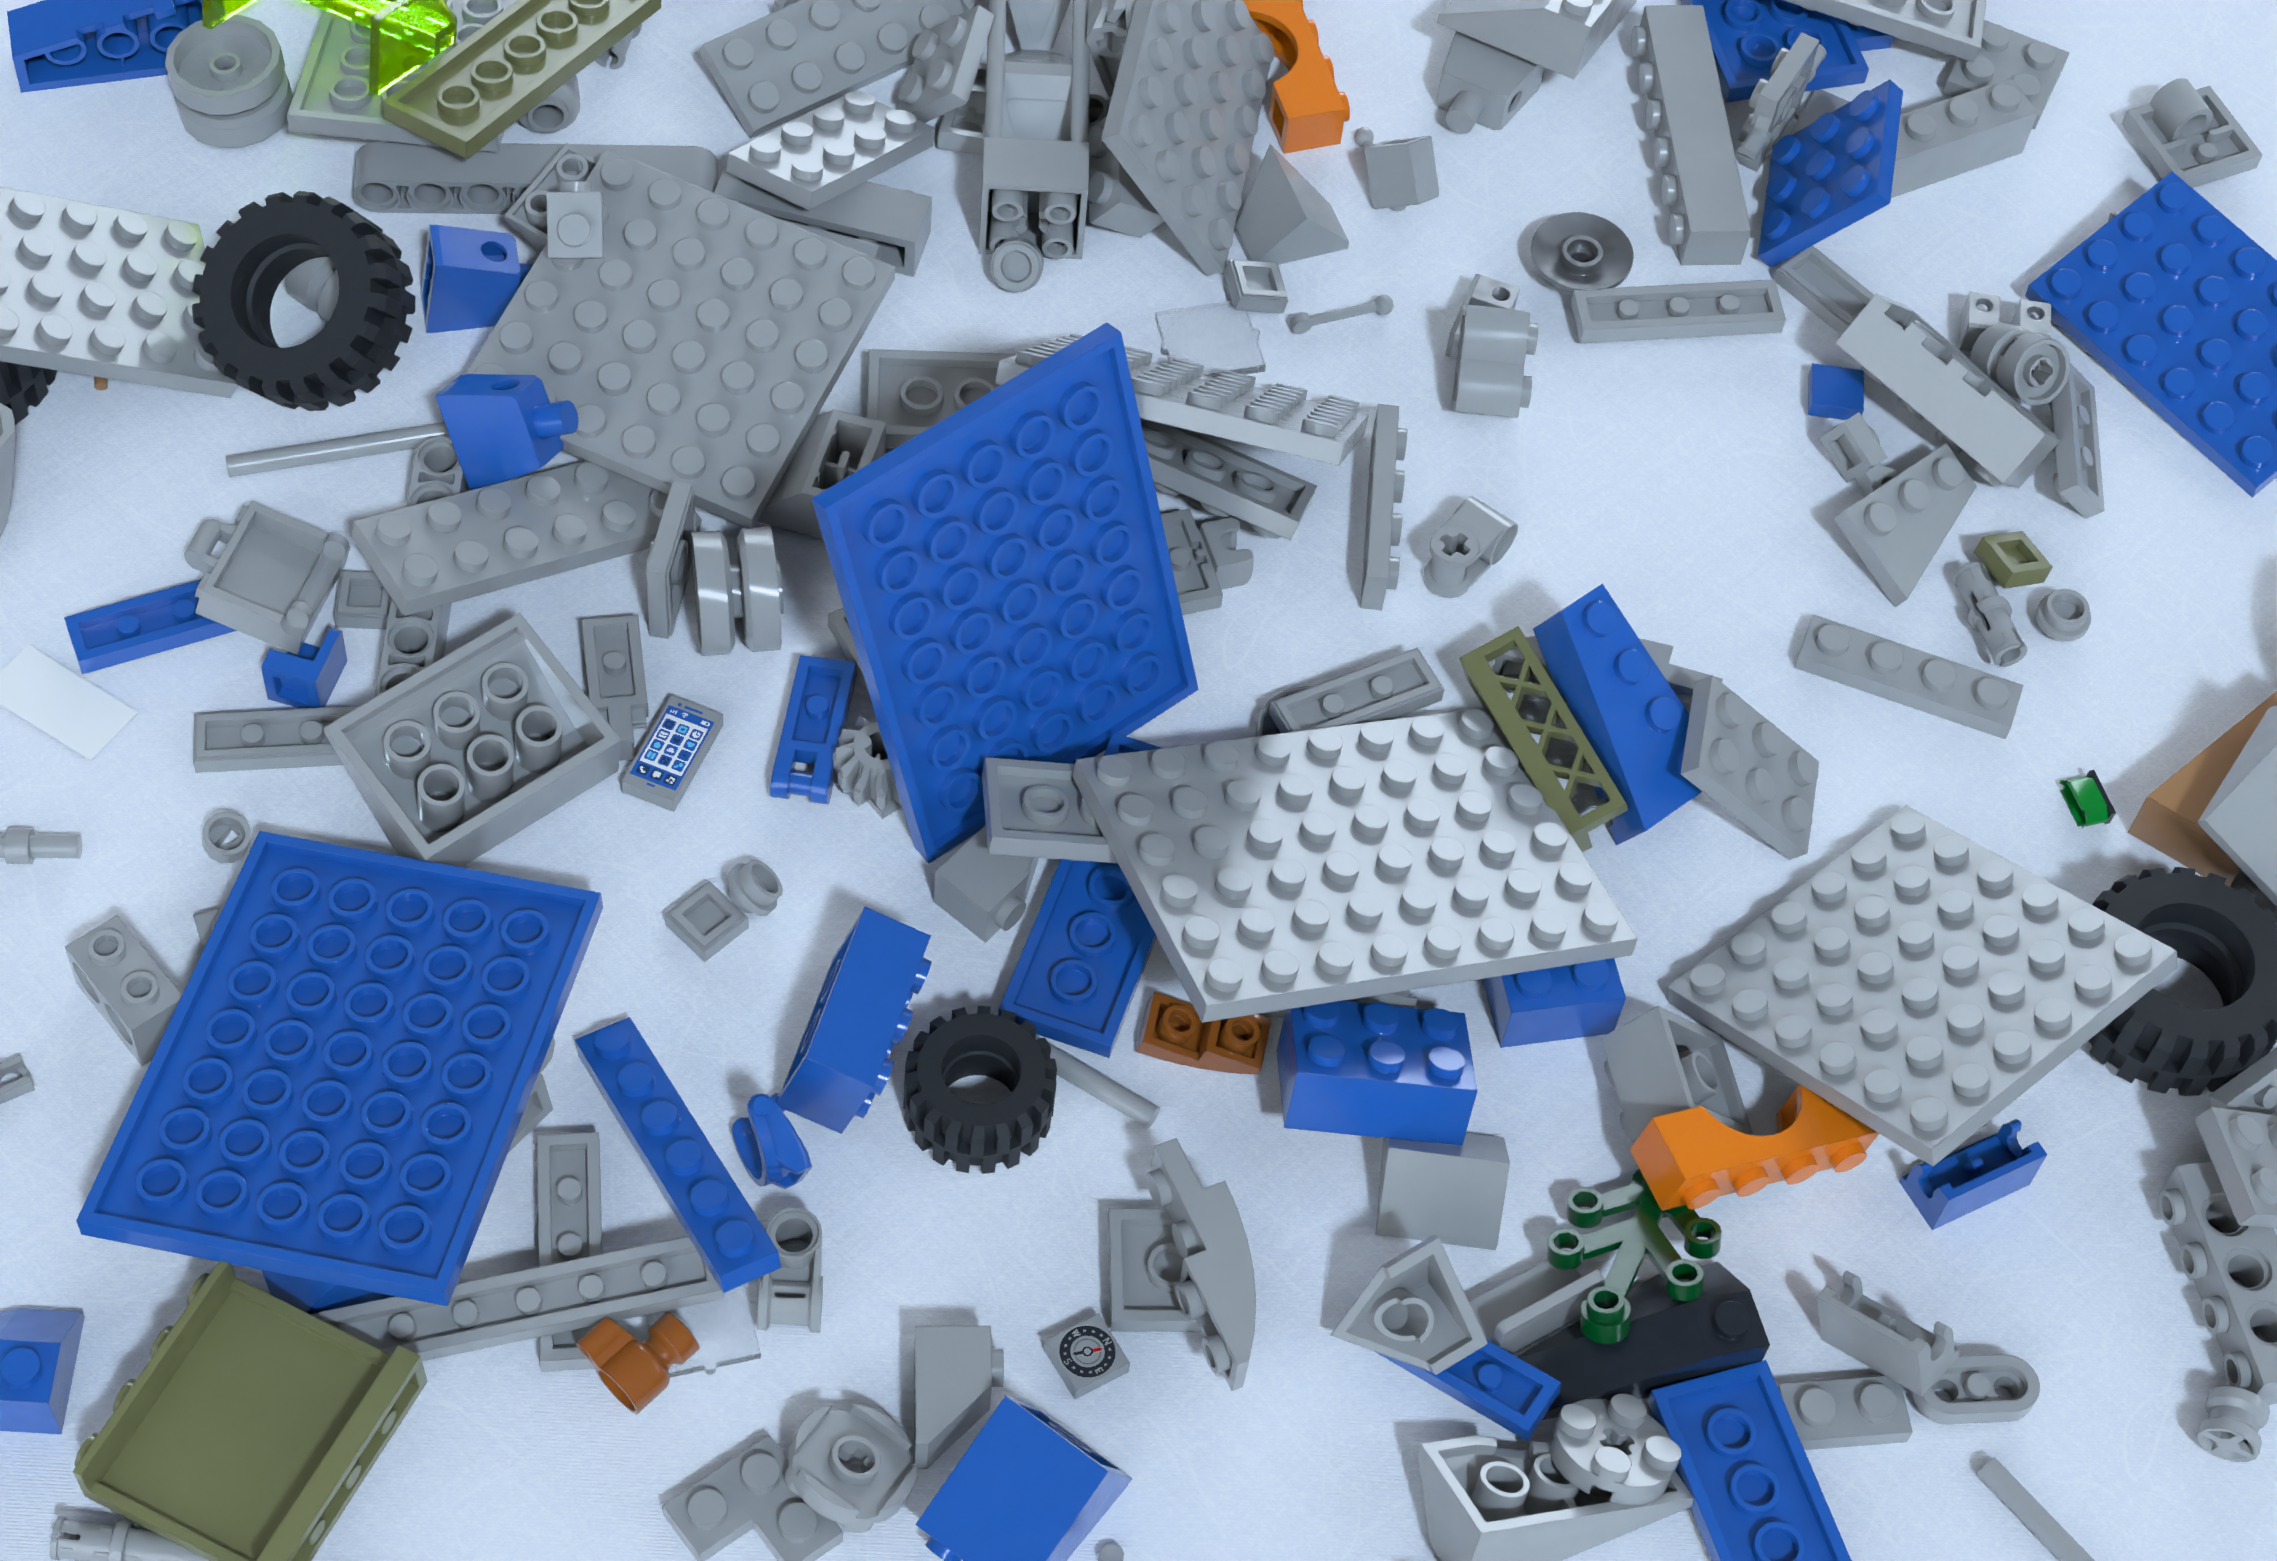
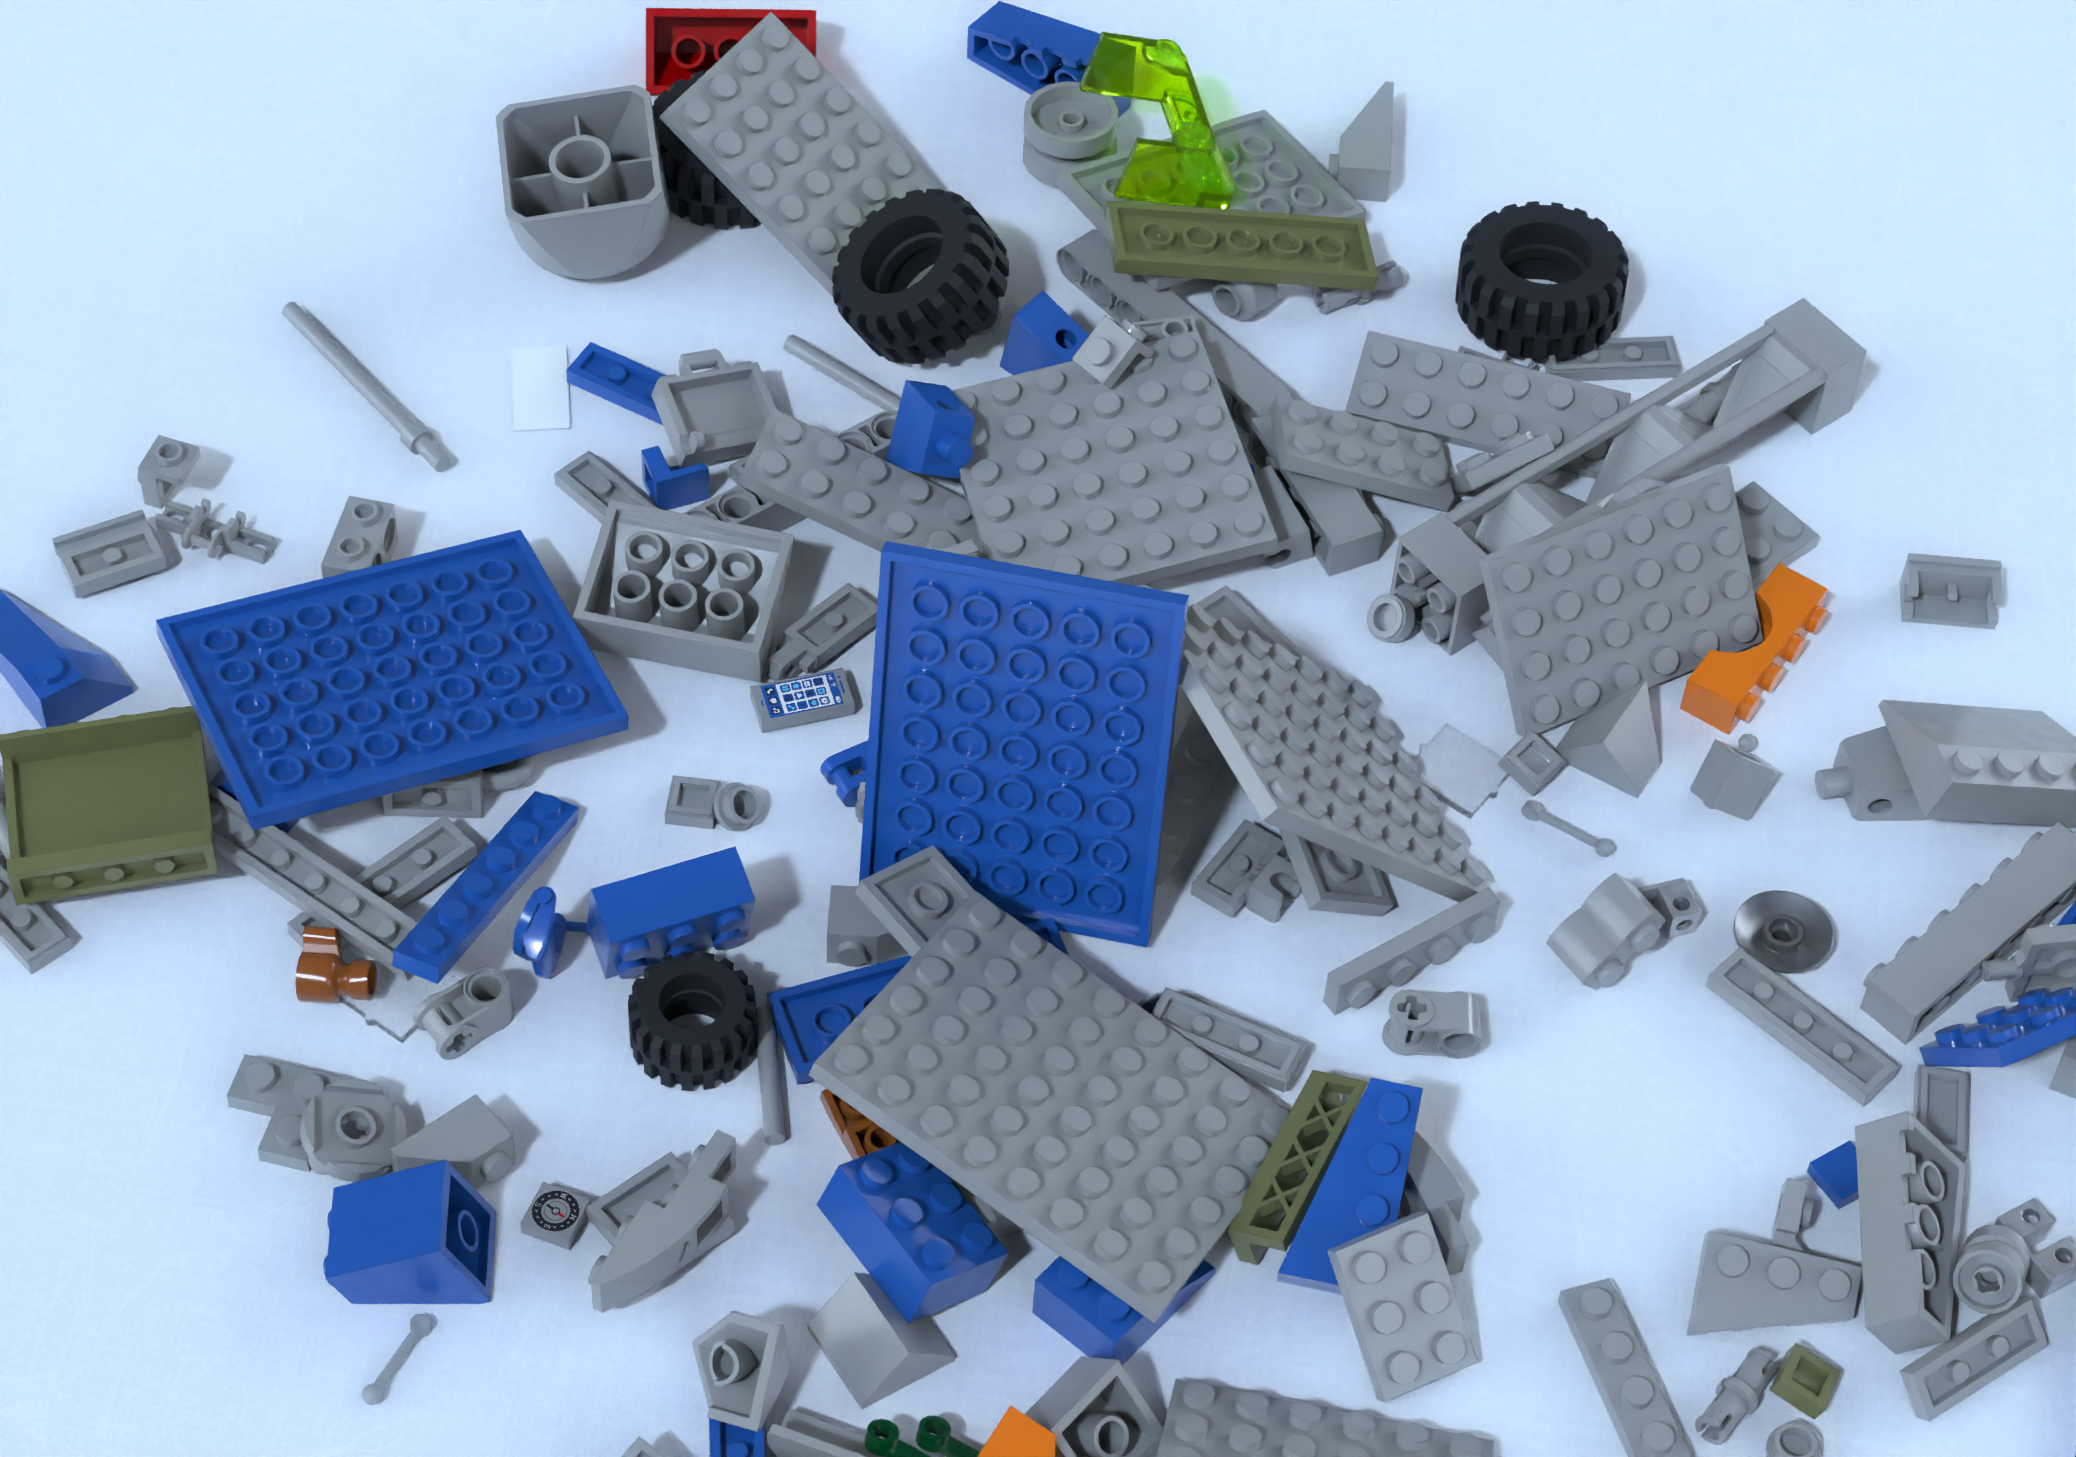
camera: 55 degrees right, 5 degrees down
(217, 830) = (513, 518): light grey hinge -> none

